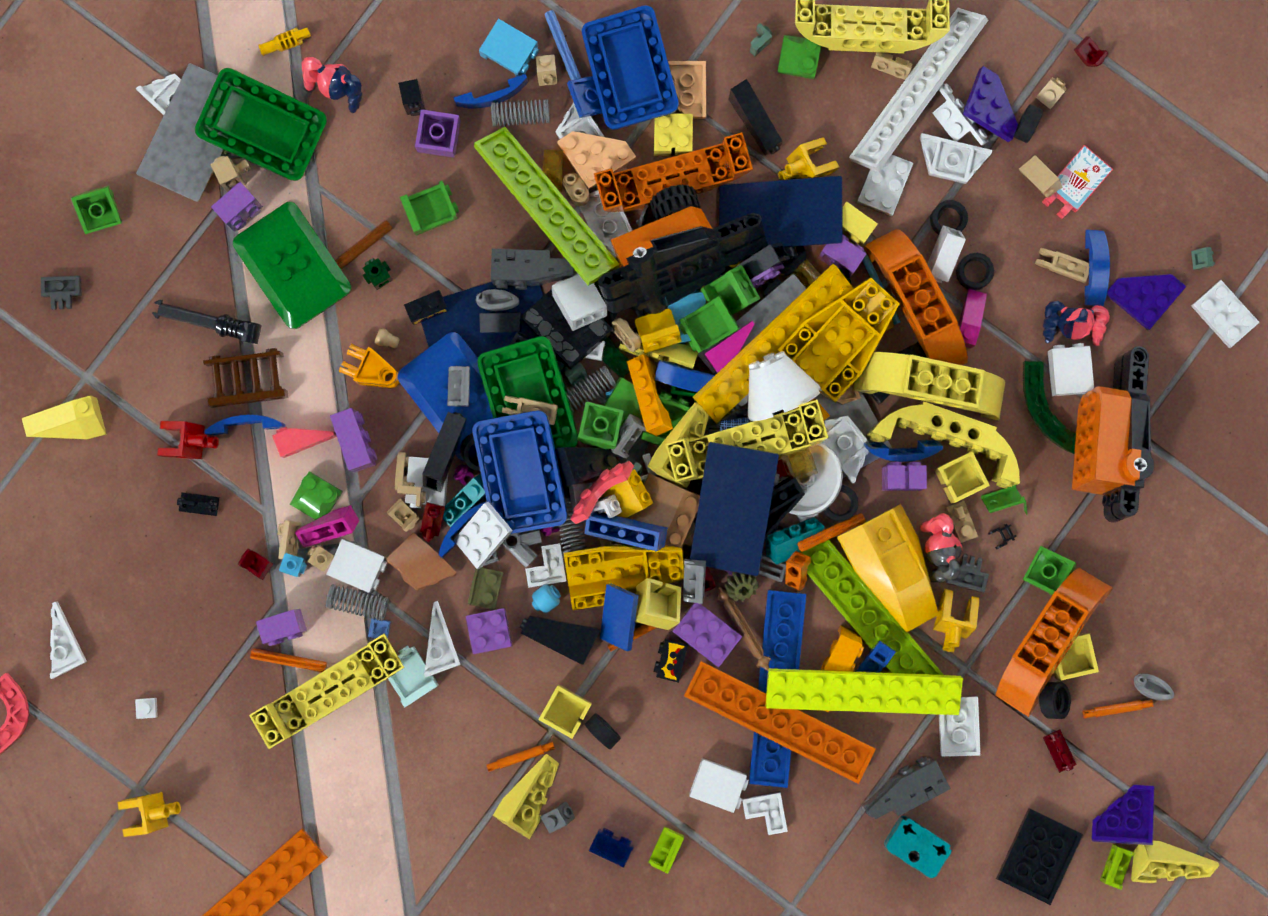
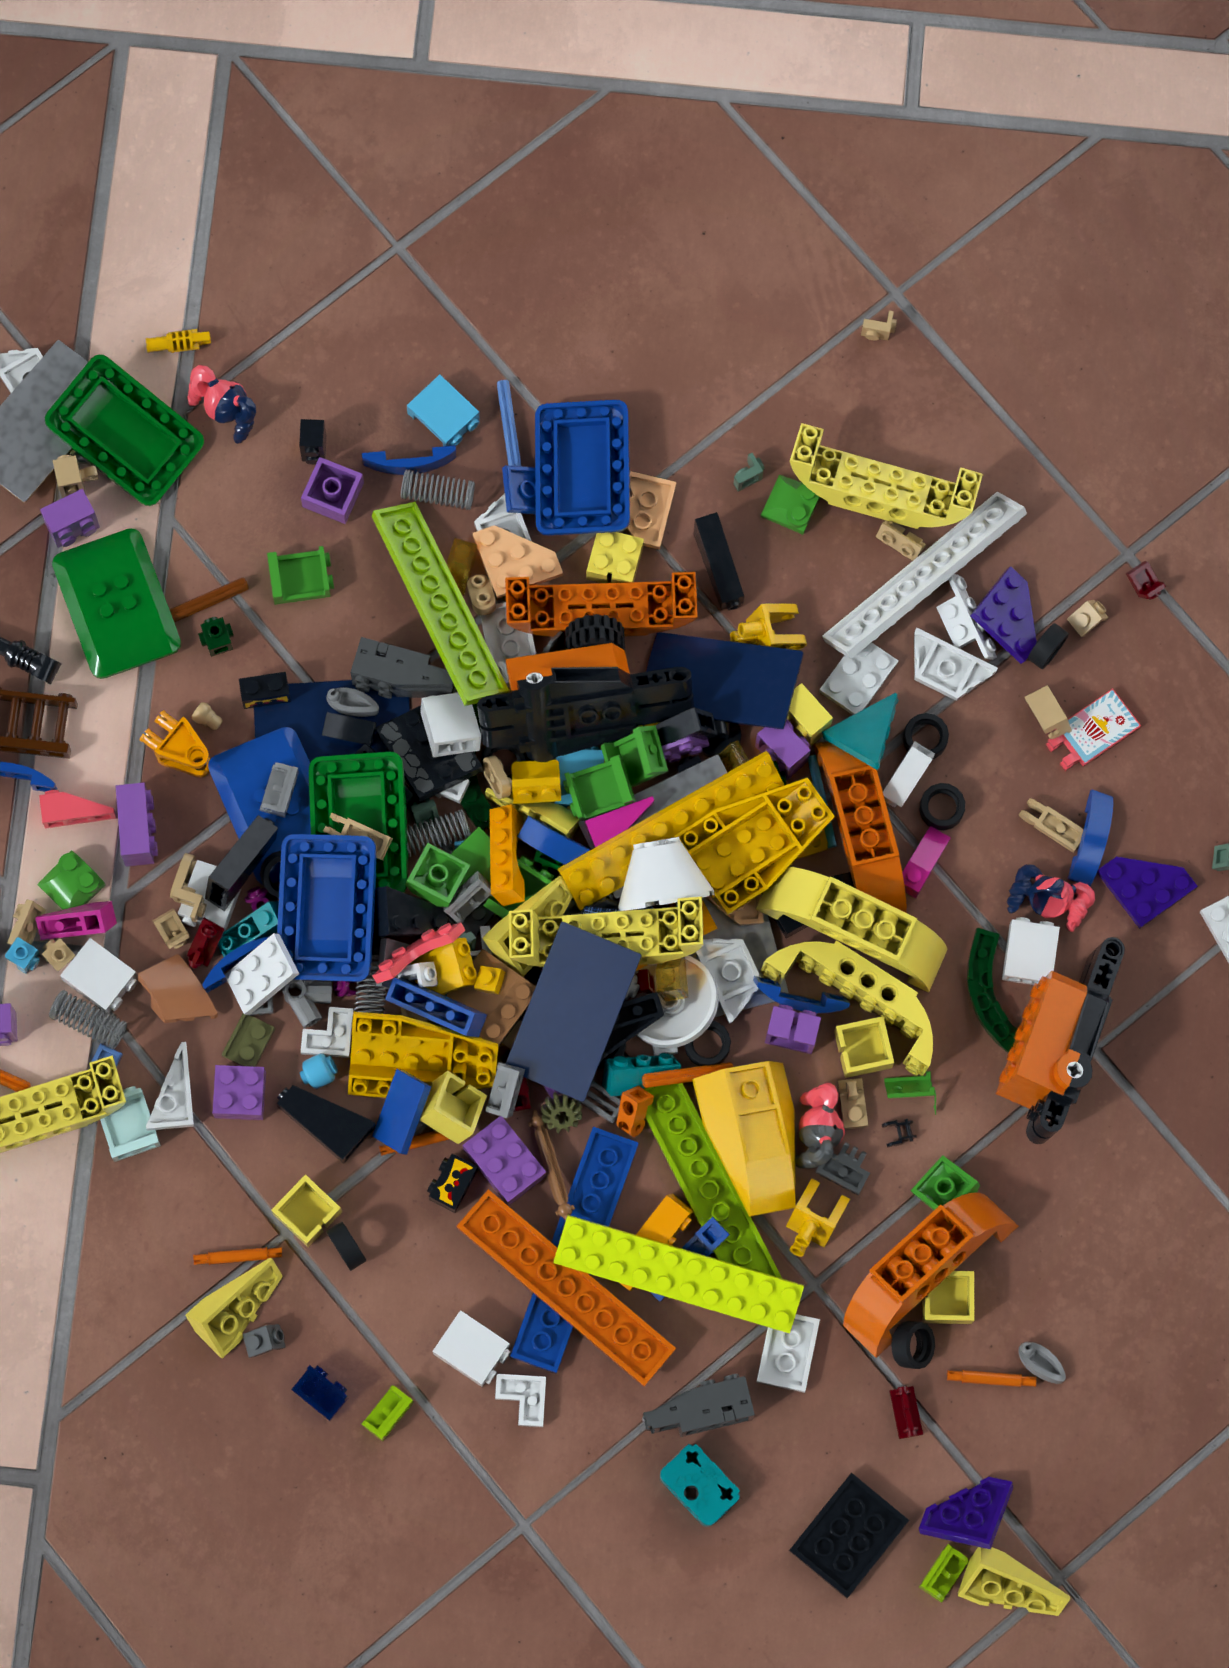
camera: 15 degrees right, 10 degrees down
(546, 70) = (482, 448): tan bracket -> none
(661, 498) = (489, 980): none -> yellow plate
(904, 228) = (865, 732): none -> teal tile

